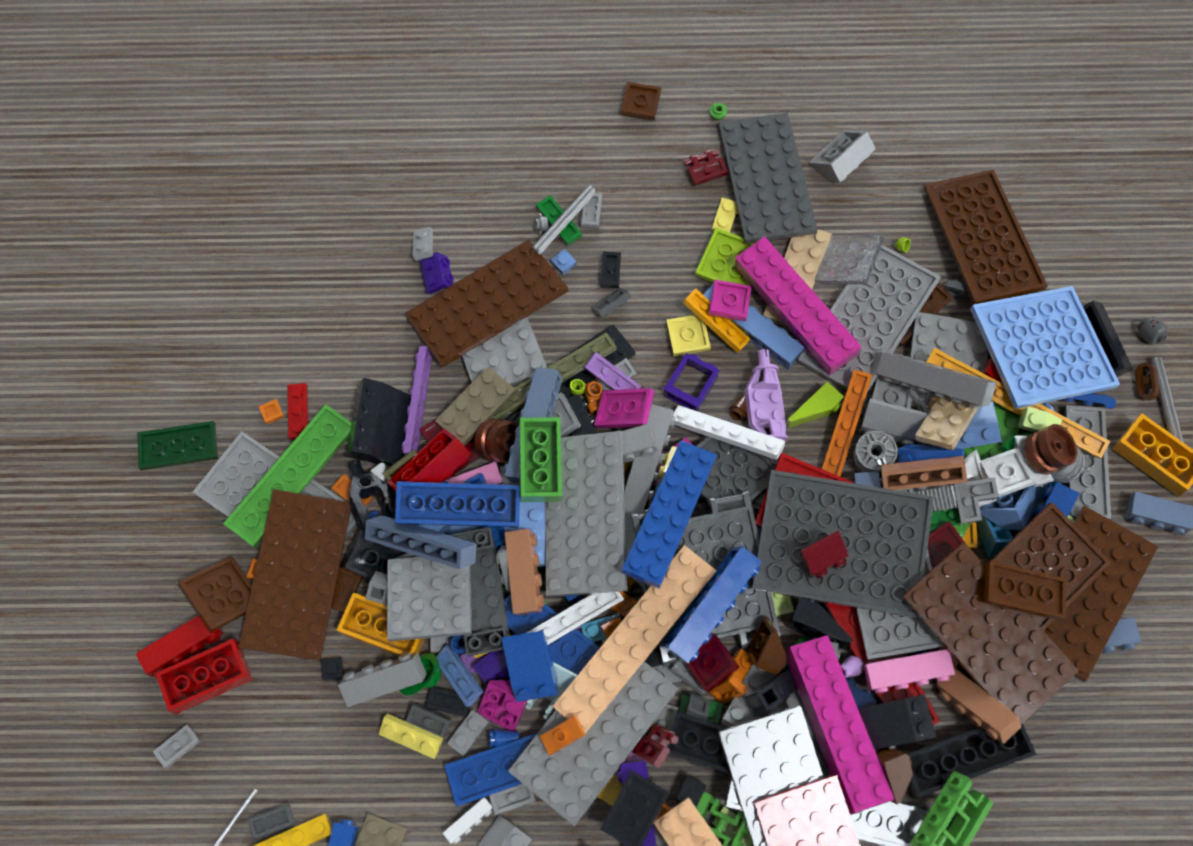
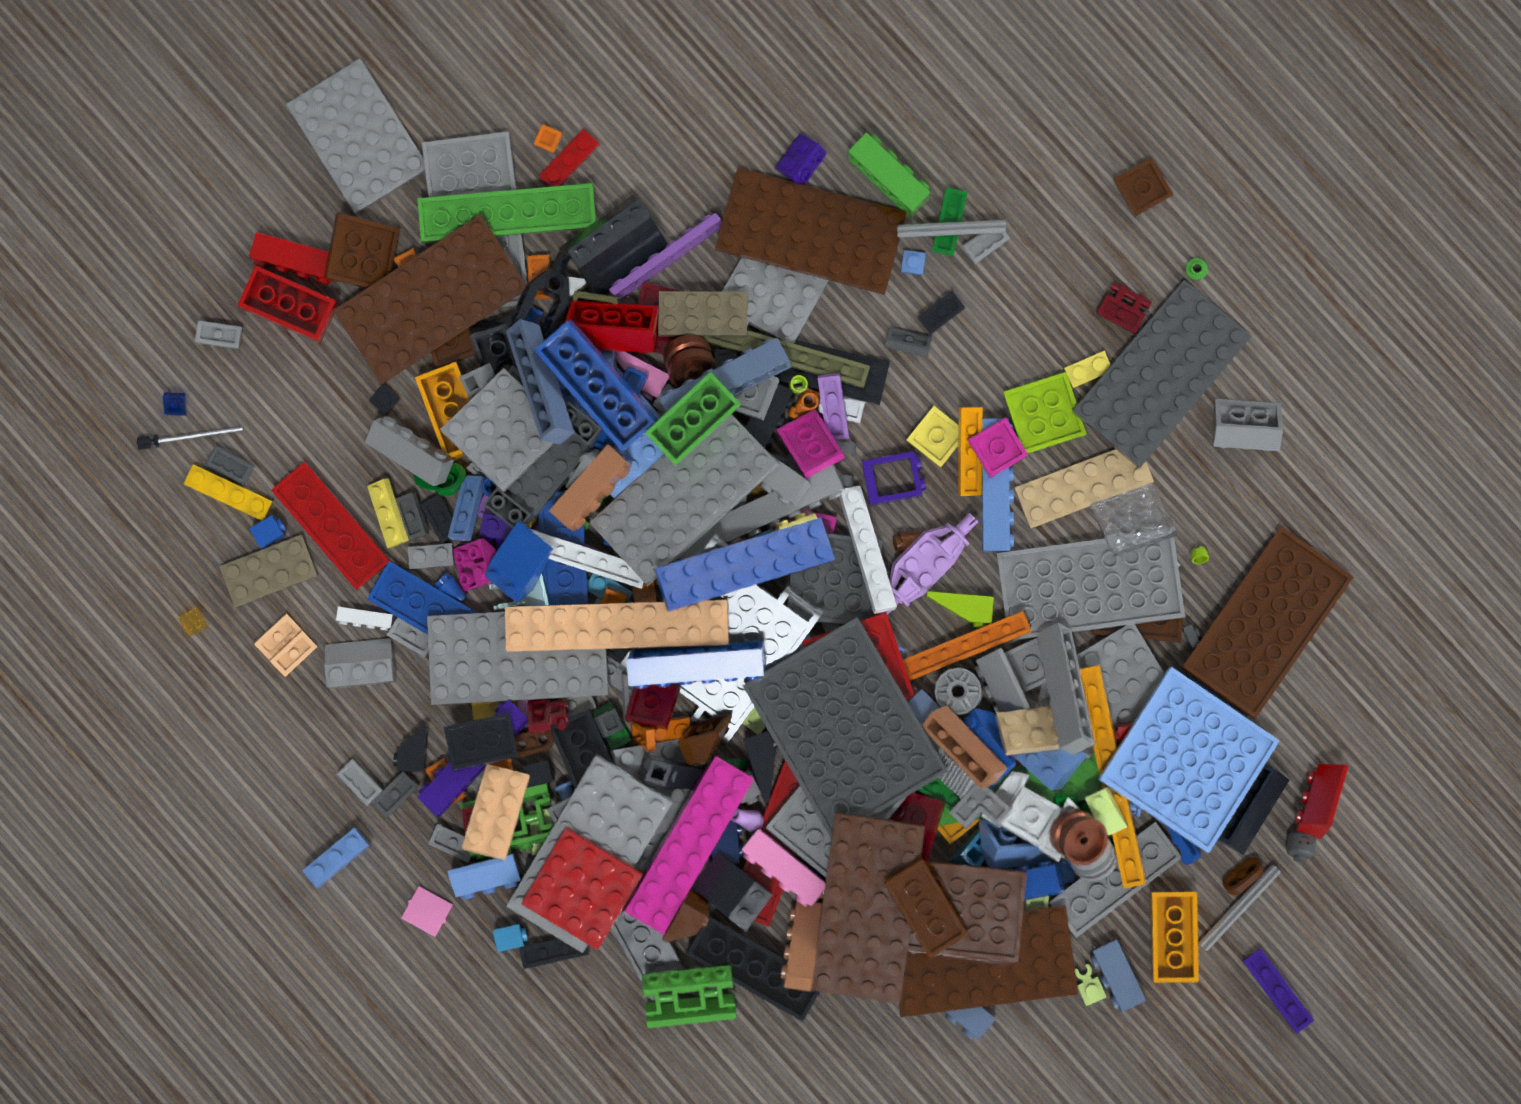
camera: 50 degrees right, 15 degrees up
(146, 532) = (357, 136): none -> light grey plate
(177, 445) = (449, 88): dark green plate -> none
(191, 823) = (175, 404): none -> clear blue plate
(381, 786) = (330, 526): none -> red plate
(422, 243) = (817, 121): light grey plate -> none
(496, 227) = (889, 175): none -> bright green brick
(541, 223) = (931, 209): light grey plate -> none
(563, 735) = (489, 635): orange plate -> none
(665, 777) = (532, 743): none -> reddish brown plate
(720, 783) = (565, 790): none -> medium blue bush
(797, 306) = (1043, 511): dark pink brick -> none
(824, 555) = (814, 722): dark red slope -> none
(1135, 290) = (1321, 799): none -> red slope
(1154, 536) = (1090, 989): none -> yellowish green plate

